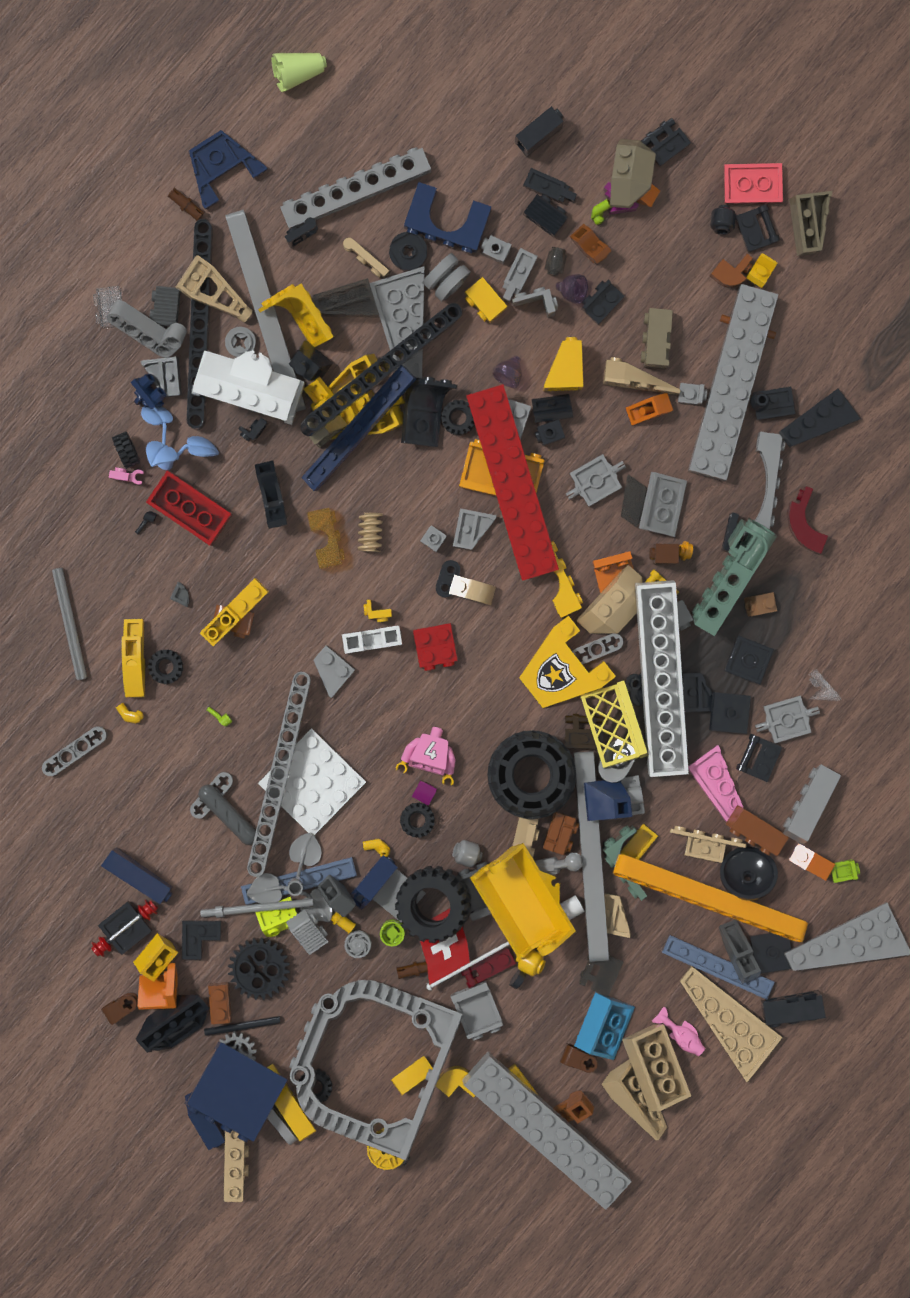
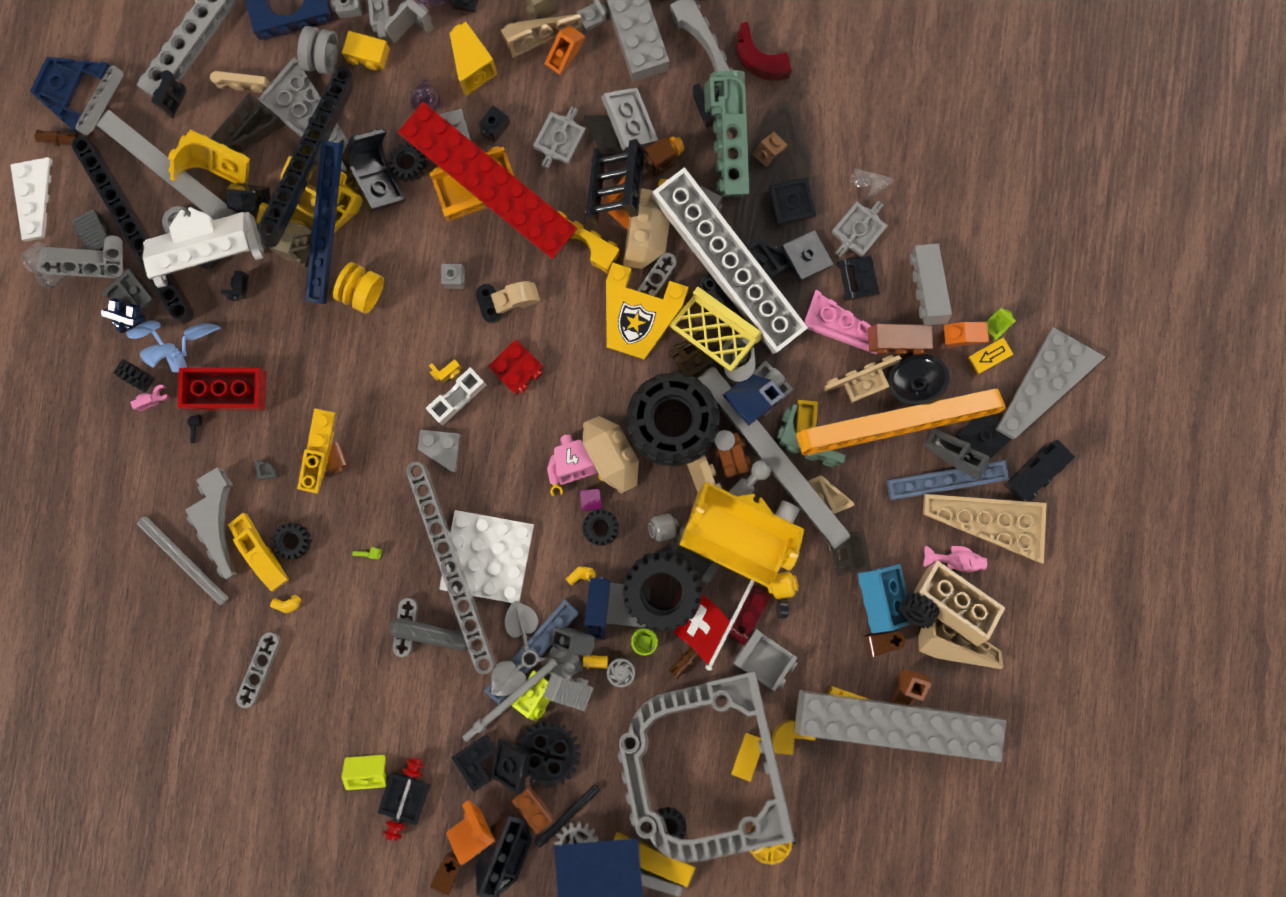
camera: 30 degrees left, 5 degrees down
(106, 887) = (364, 772): none -> neon yellow panel
(111, 606) = (209, 519): none -> light grey arch
(137, 876) = (383, 744): dark blue slope -> none
(138, 232) = (31, 196): none -> white wing
(155, 957) = (447, 806): yellow brick -> none
(195, 276) = (97, 186): tan plate -> none
(224, 958) = (510, 766): none -> black plate
(259, 185) = (99, 100): none -> light grey beam
(271, 494) = (285, 329): black arch -> none
(324, 521) = (346, 325): clear yellow arch -> none
(351, 498) = (358, 287): none -> yellow wheel
(370, 532) = (393, 308): tan piece -> none
(406, 262) = (265, 46): black plate -> none
(464, 767) = (611, 453): none -> tan wedge
(471, 528) = (480, 246): light grey wing -> none
(552, 408) = (481, 101): black plate -> none
(561, 819) = (724, 440): none -> light grey tile
(622, 1052) = (919, 610): none -> black tyre
(623, 567) = (631, 187): none -> black fence
(821, 891) = (990, 355): none -> yellow tile

